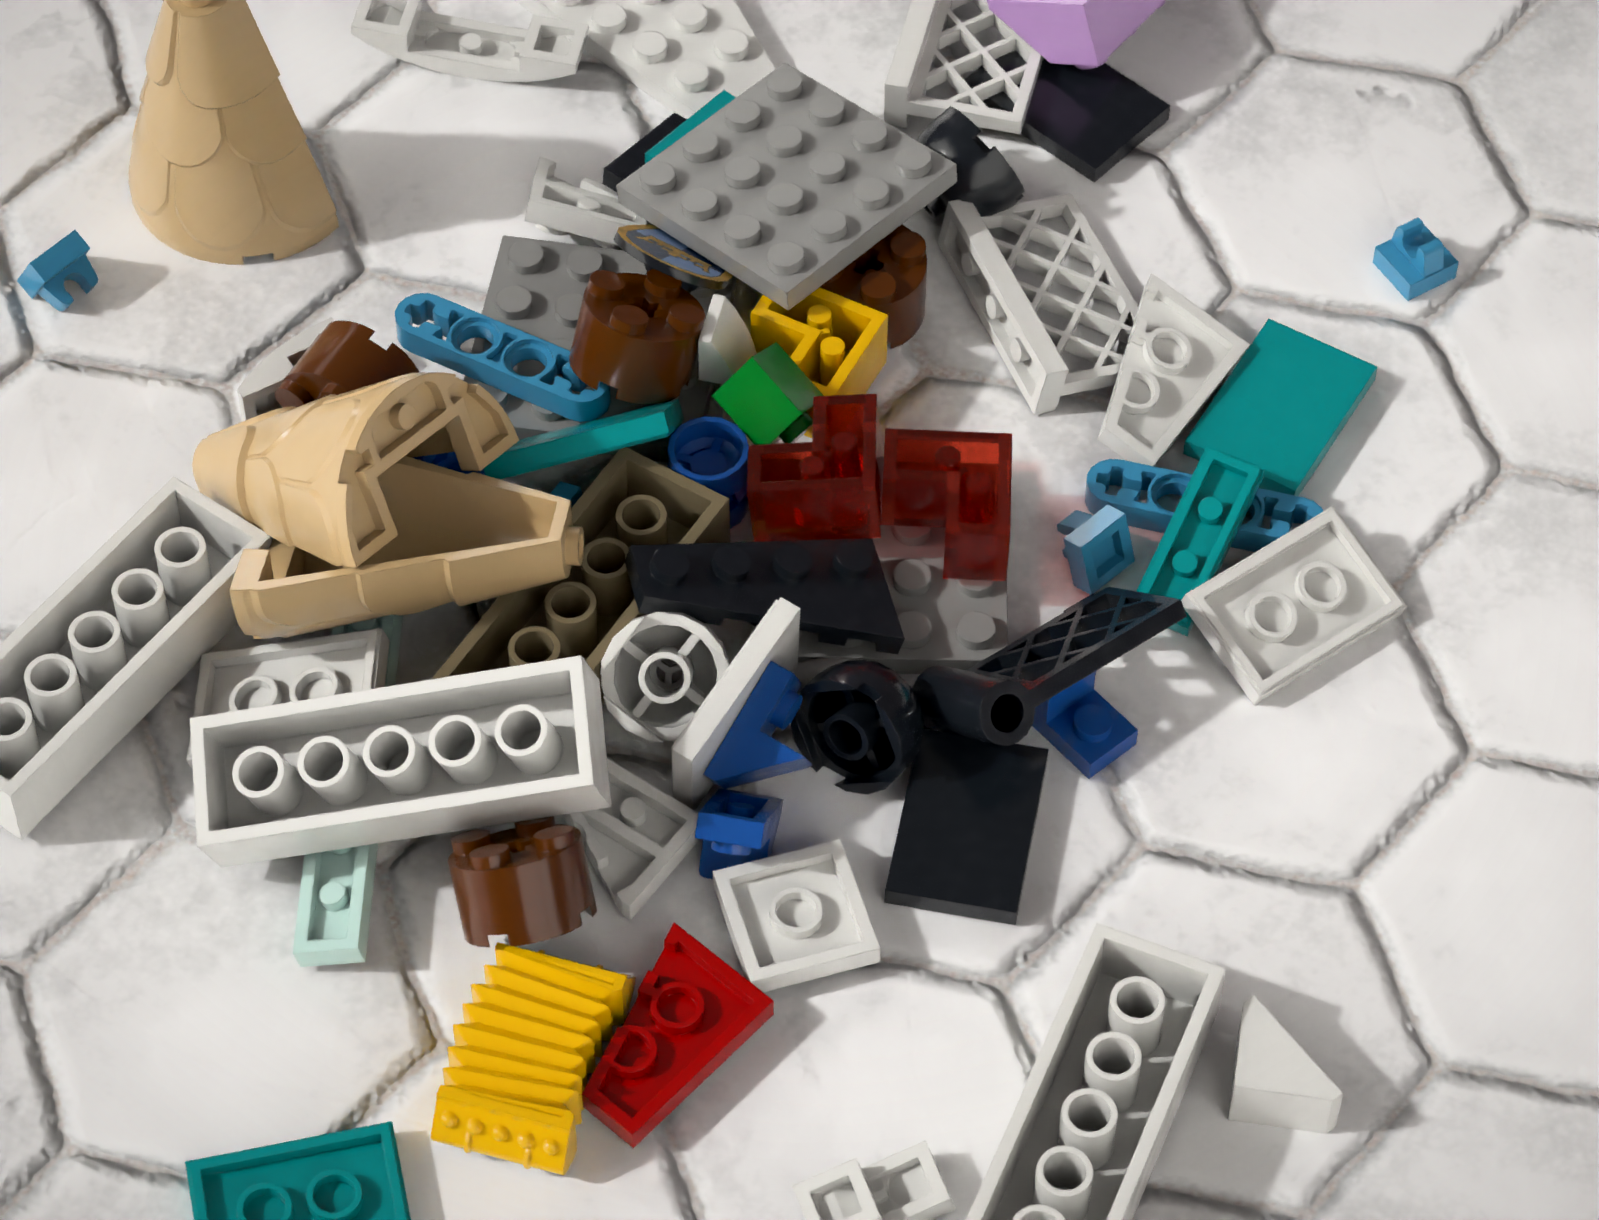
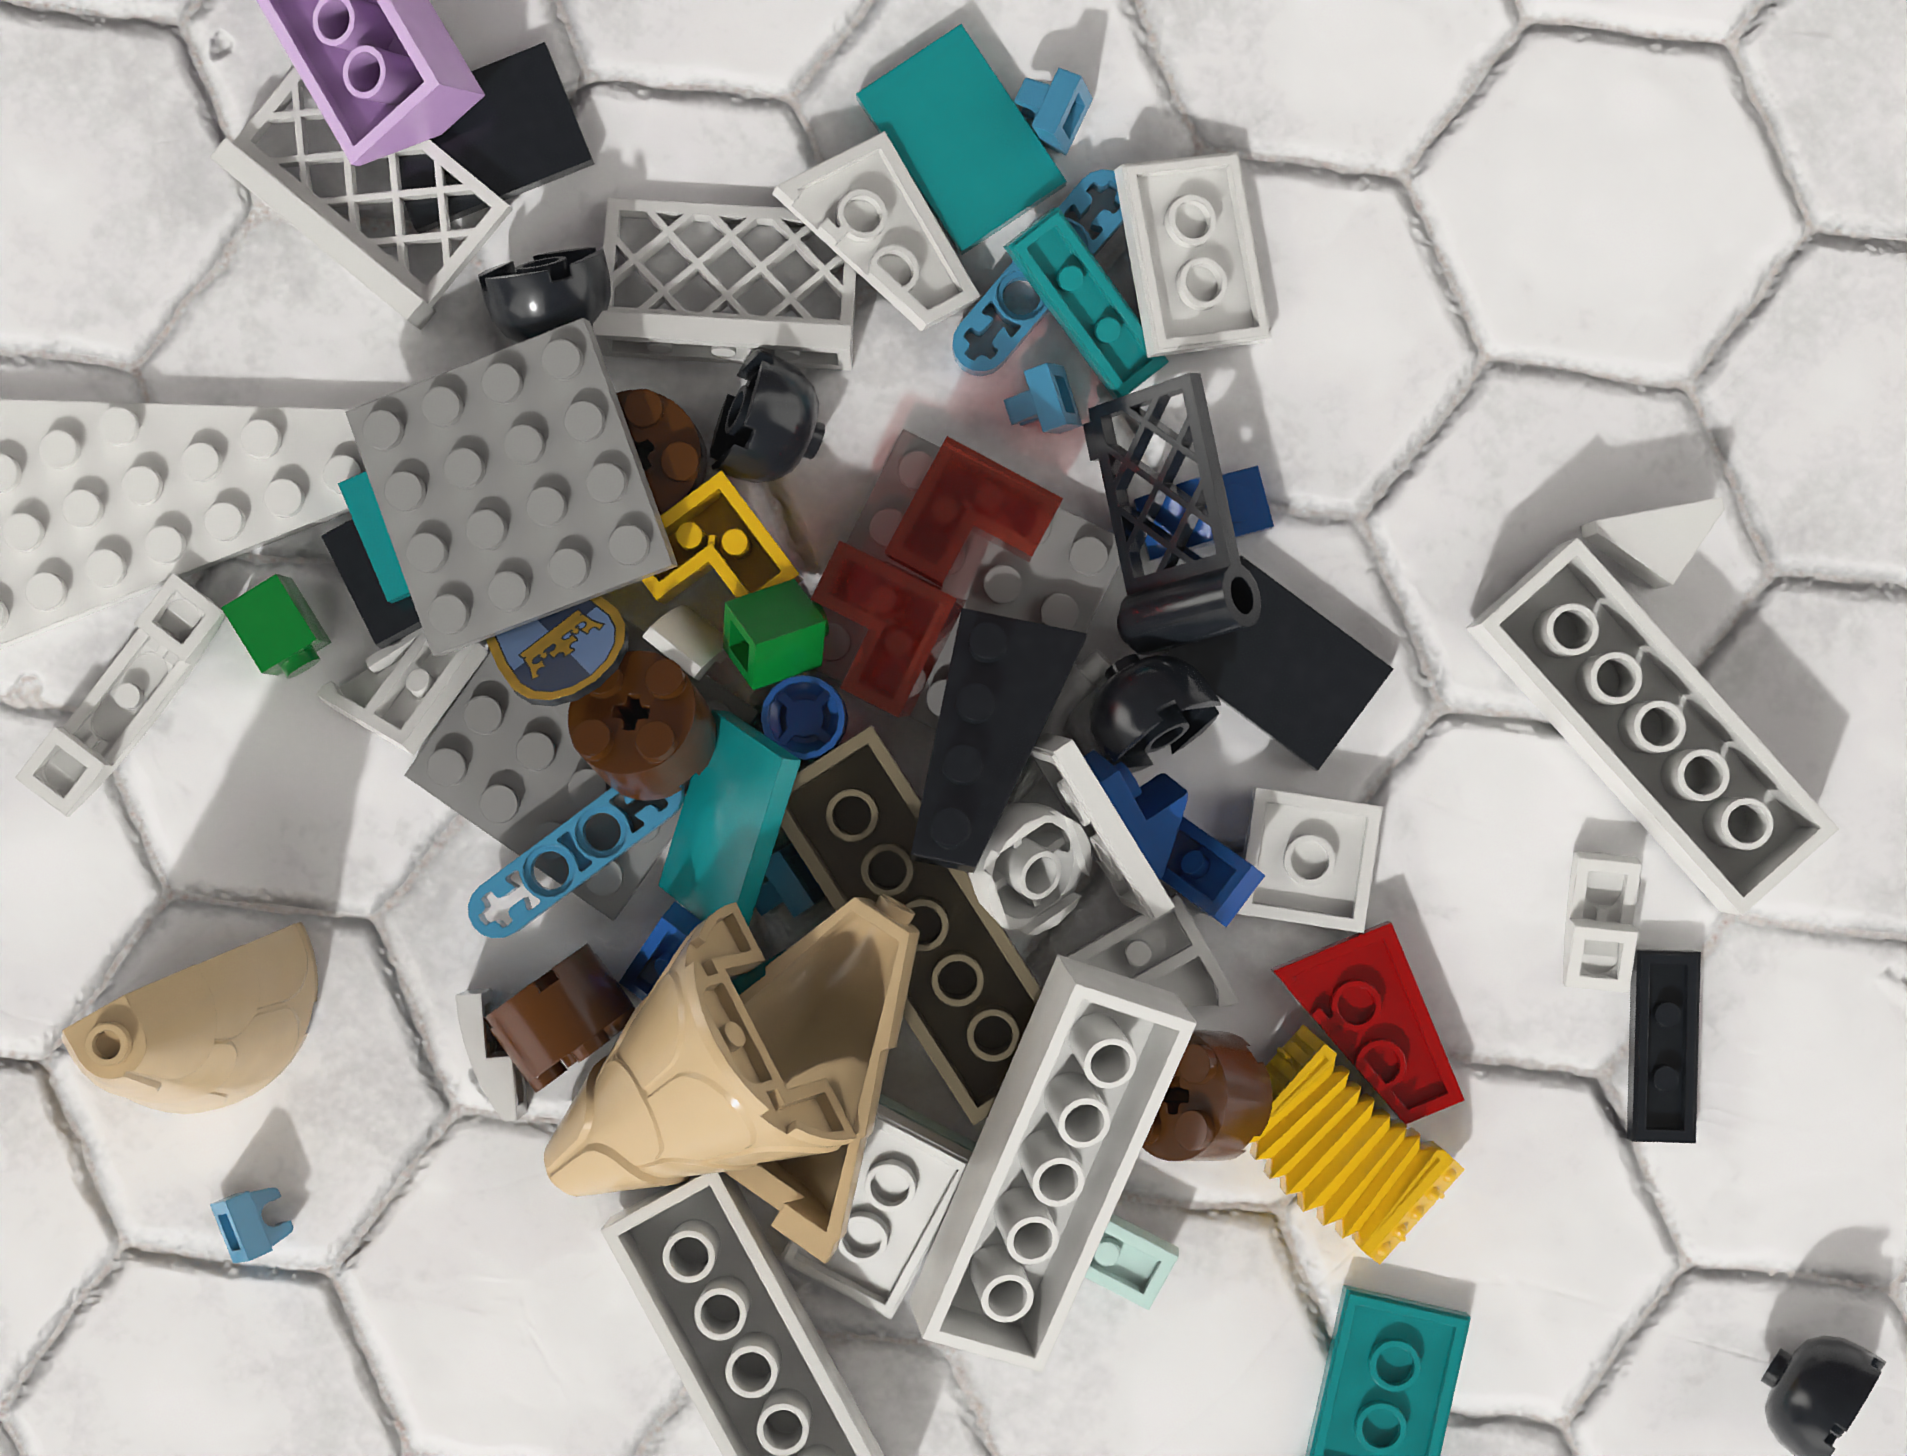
camera: 65 degrees left, 35 degrees up
(583, 108) = (277, 627): none -> green brick
(951, 350) = (767, 422): none -> black cylinder
(1351, 458) = (1055, 108): none -> dark azure tile

